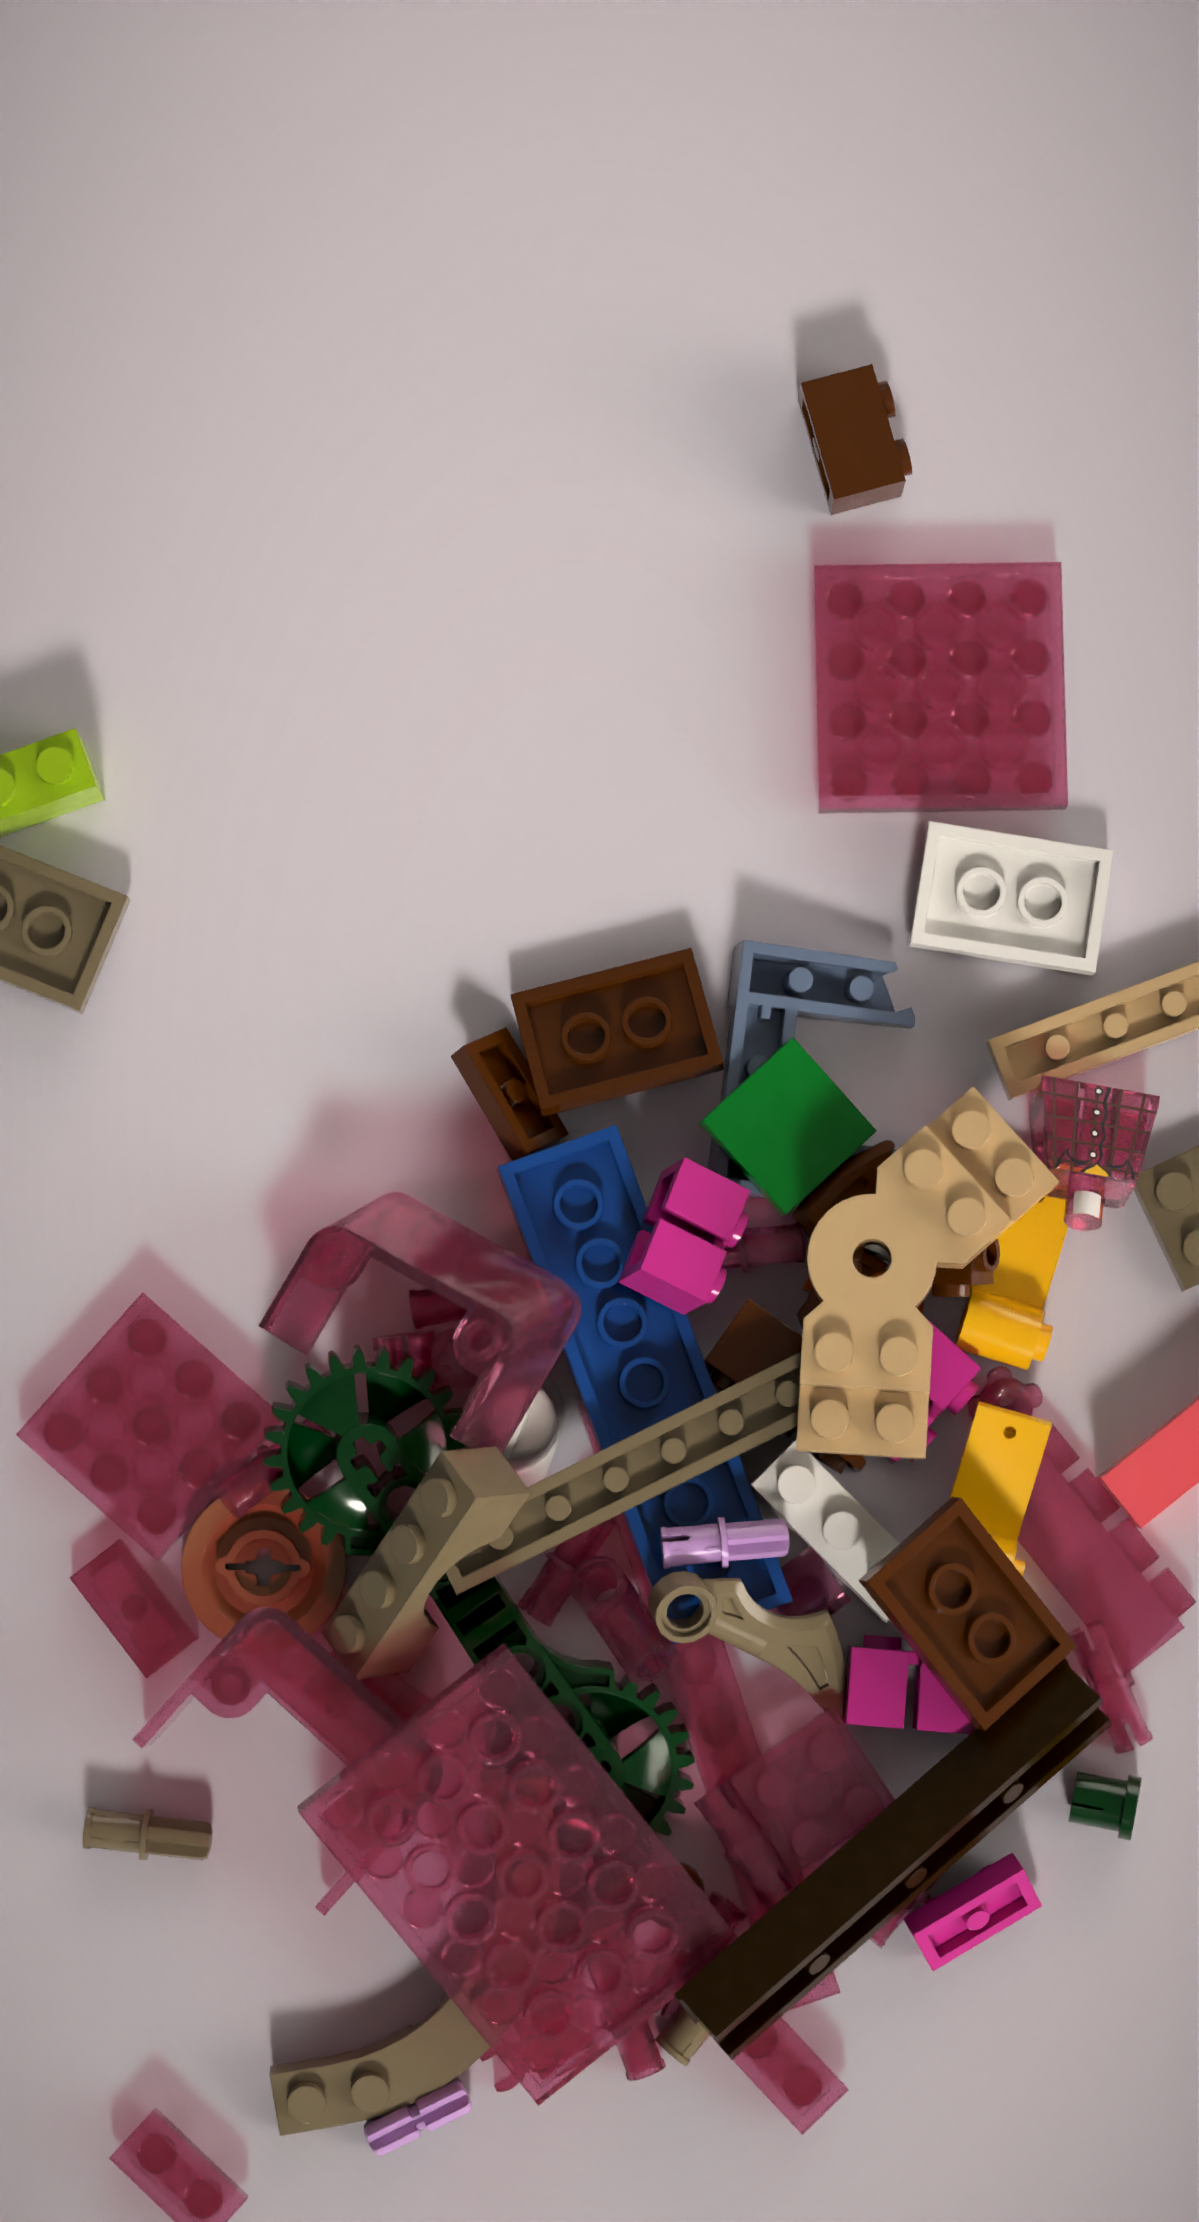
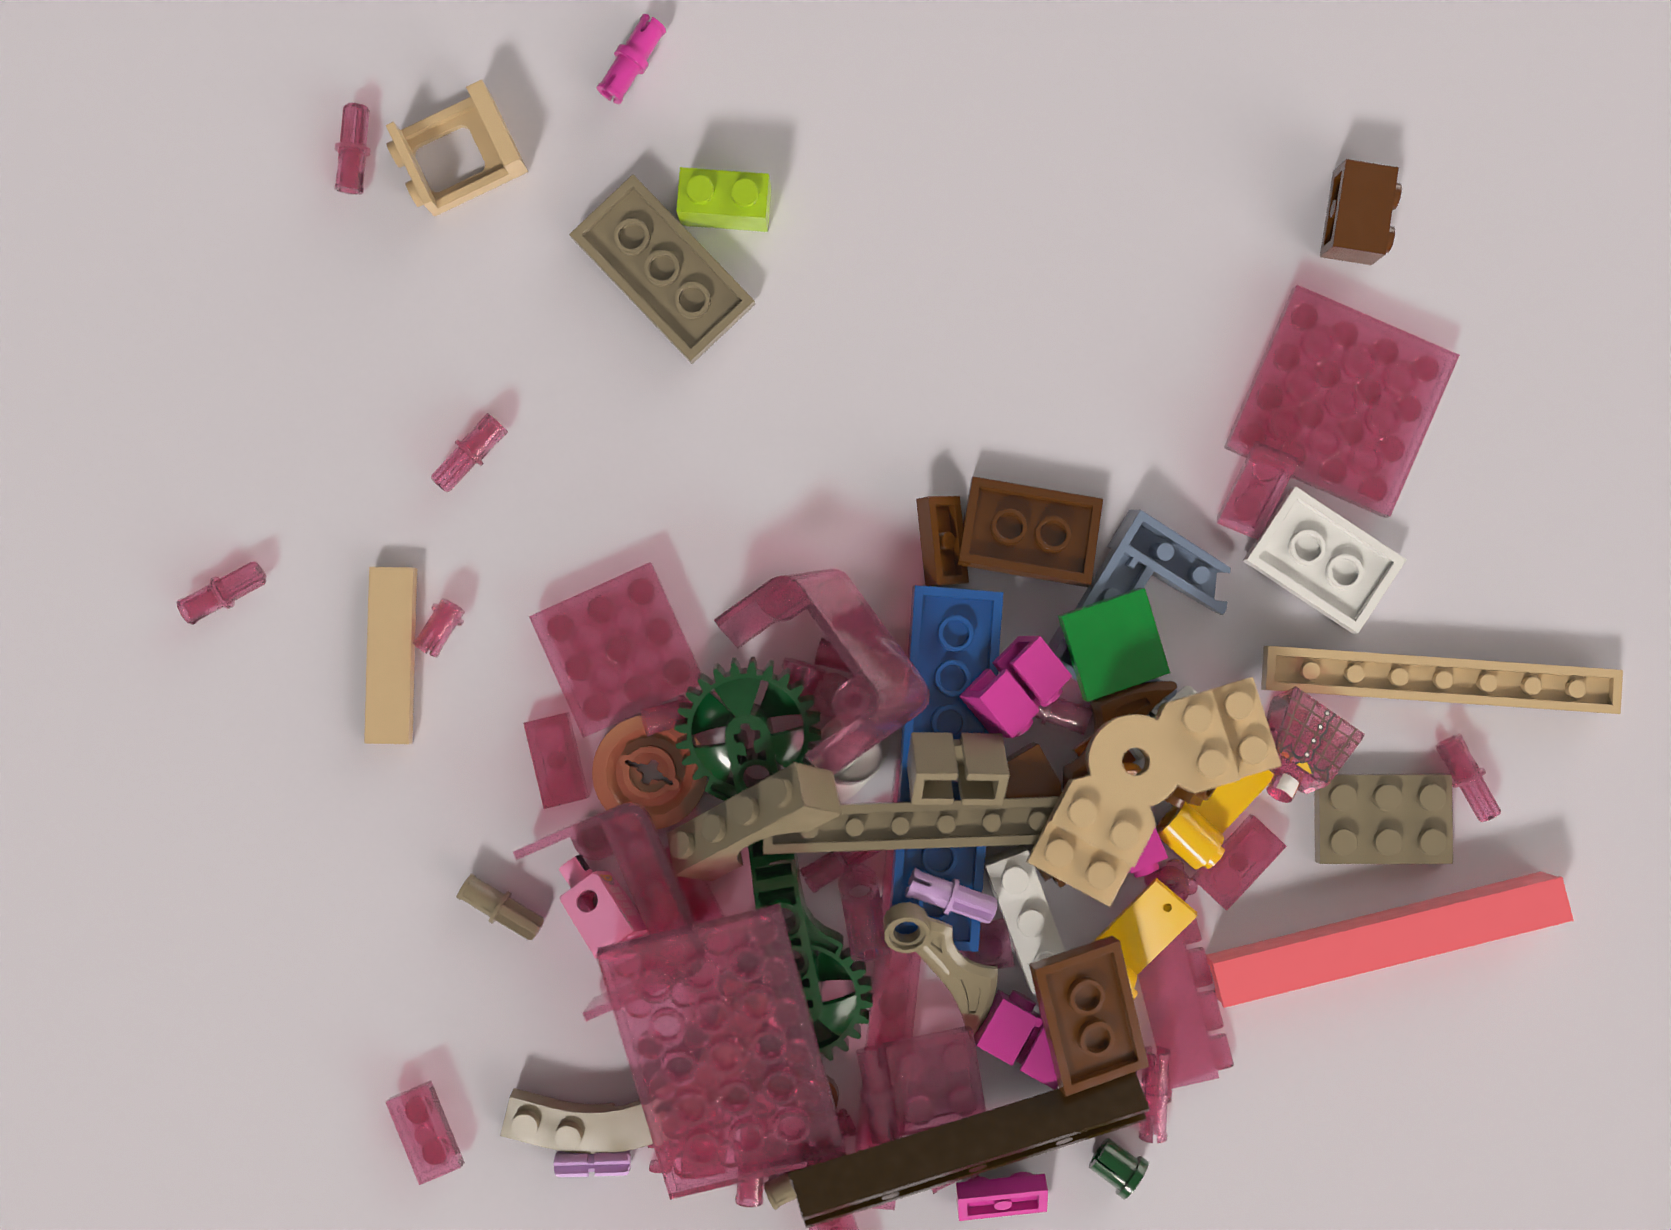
camera: 25 degrees right, 5 degrees up
(294, 1768) = (613, 918): none -> bright pink torso
(680, 1354) = (974, 759): none -> dark tan piece
(881, 848) = (1257, 490): none -> clear pink plate
(1082, 1336) = (1245, 858): none -> clear pink plate

